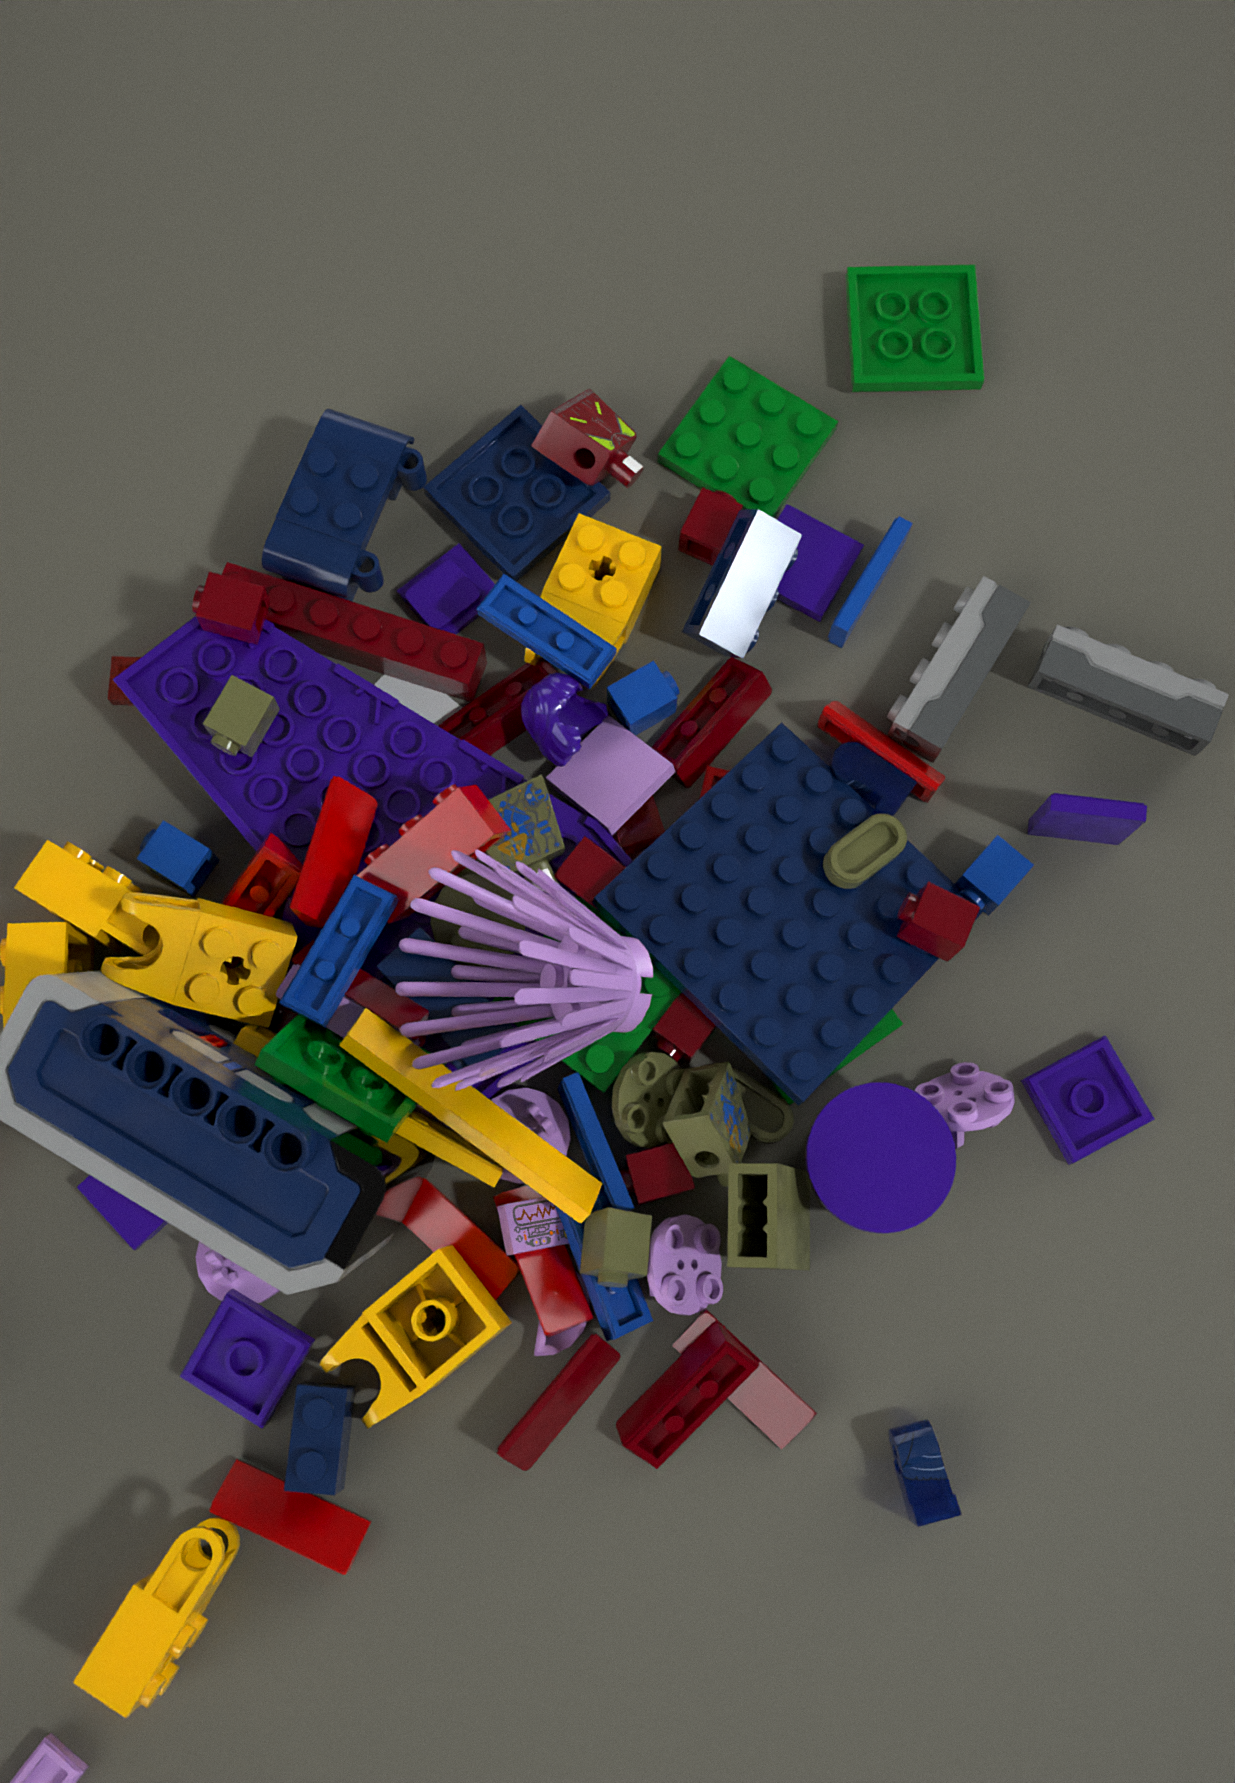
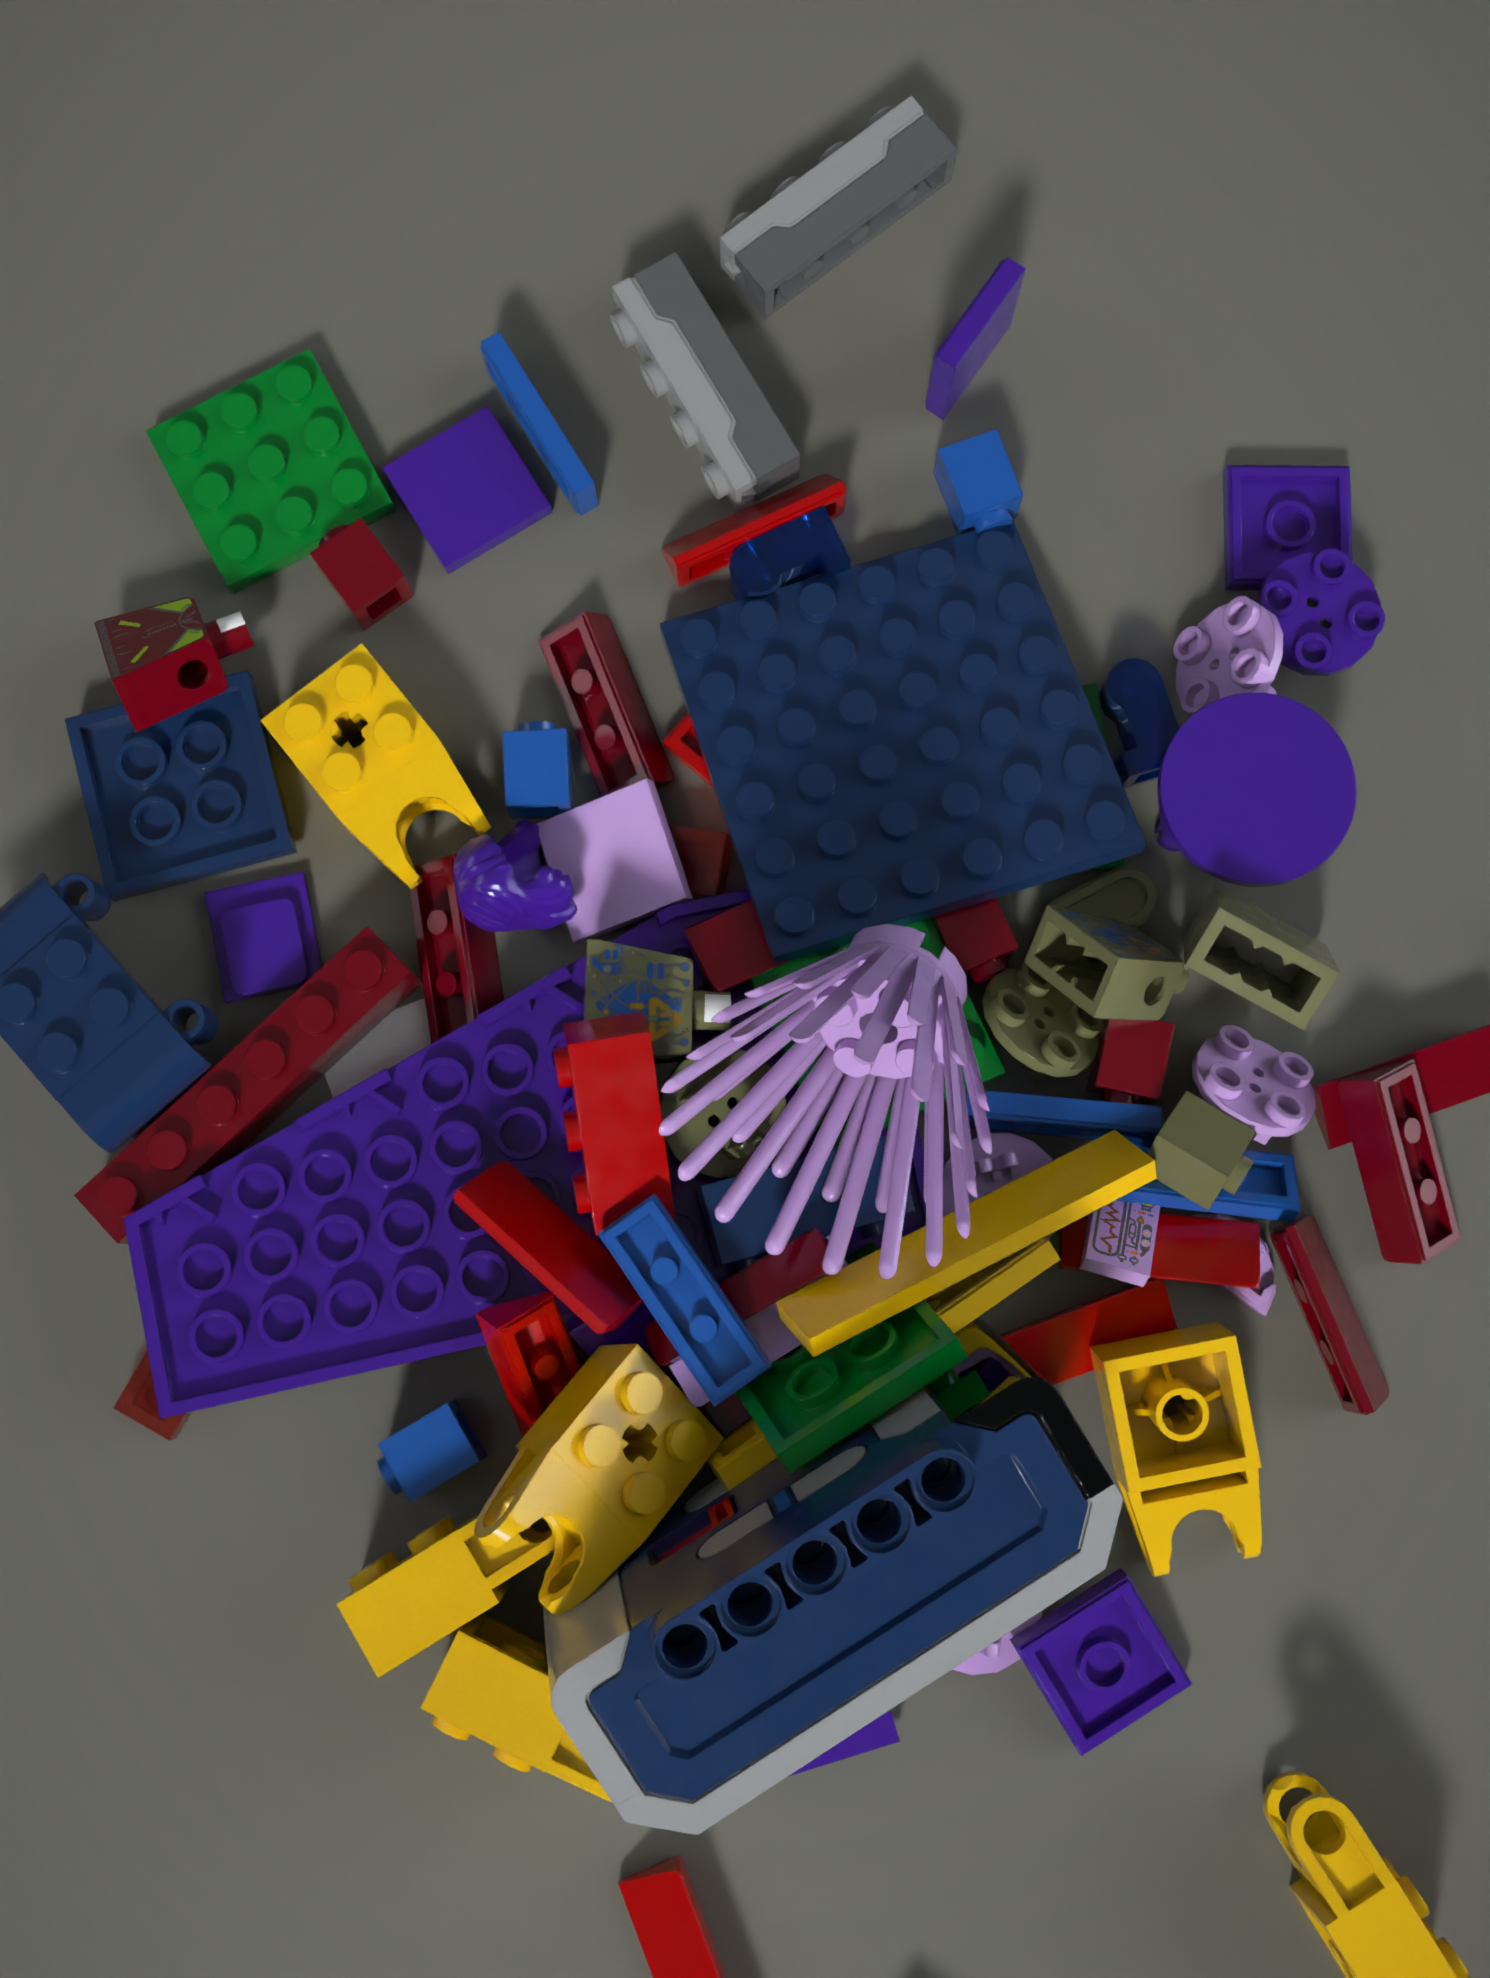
camera: 60 degrees left, 5 degrees up
(231, 607) = (152, 1217): dark red brick -> none
(240, 717) = (307, 1277): olive brick -> none
(290, 1519) = (1311, 1699): red slope -> none
(320, 1438) = (1241, 1618): dark blue brick -> none
(546, 631) = (395, 840): blue tile -> none
(742, 583) = (462, 572): brick -> none
(864, 851) = (877, 611): olive tile -> none
(905, 1055) = (1143, 716): none -> clear blue leg
(914, 328) = (238, 192): green plate -> none
(936, 921) = (1010, 573): dark red brick -> none
(1053, 1158) = (1341, 597): none -> dark purple plate

